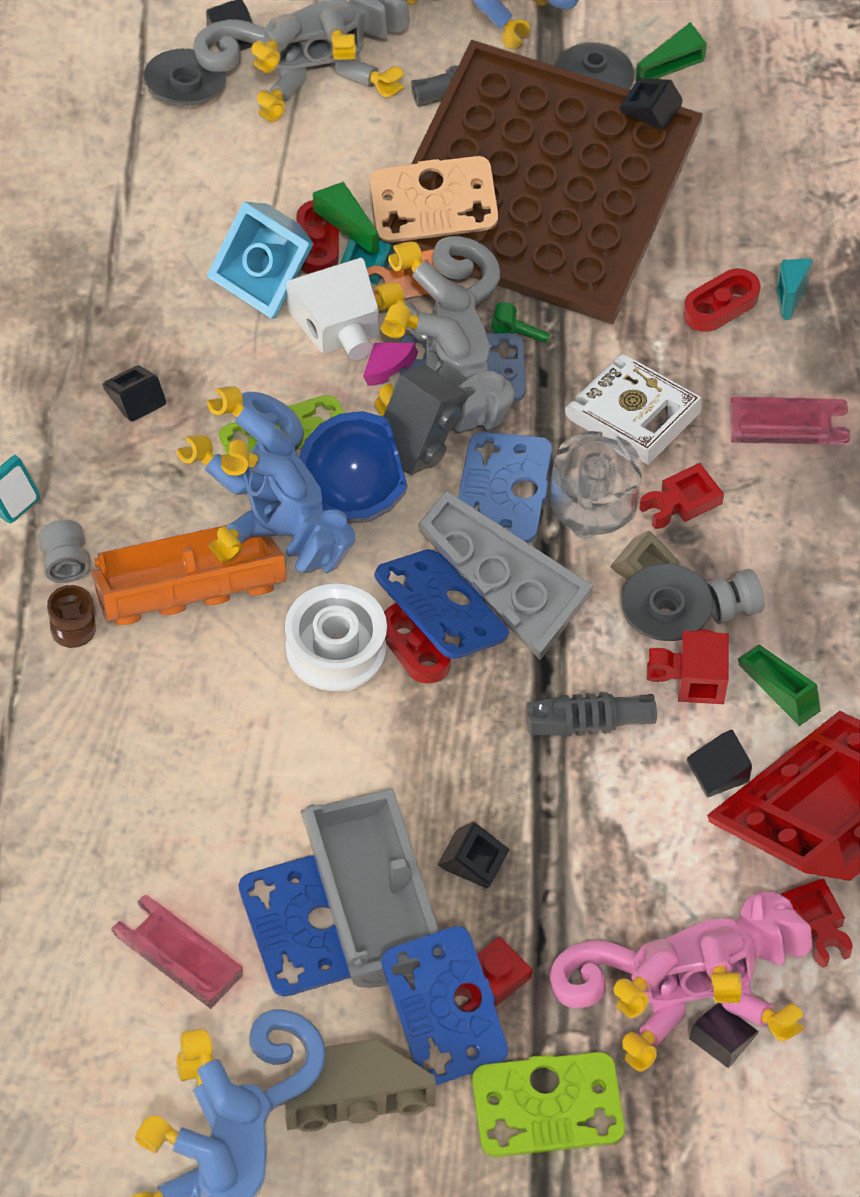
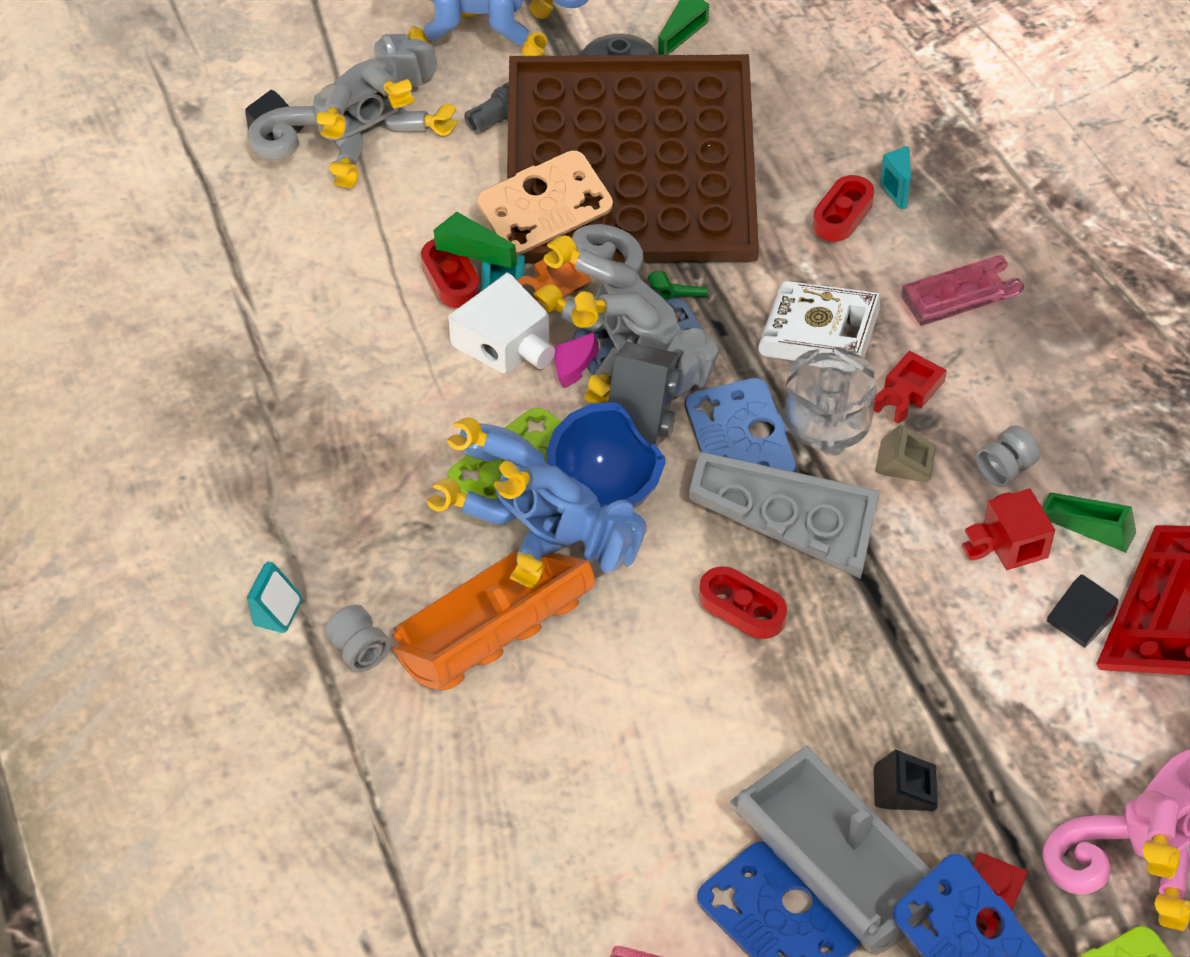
camera: 20 degrees left, 5 degrees down
(71, 616) = (397, 697): reddish brown wheel -> none
(135, 392) = (347, 467): black slope -> none
(180, 80) = (250, 176): dark grey dish -> none
(260, 256) = (410, 305): medium azure slope -> none
(335, 662) = (664, 649): white wheel -> none
(429, 607) = (730, 557): blue axle -> none
(564, 715) = (939, 609): dark grey hinge -> none
(652, 102) = (701, 57): black slope -> none
(666, 588) = (951, 482): dark grey dish -> none

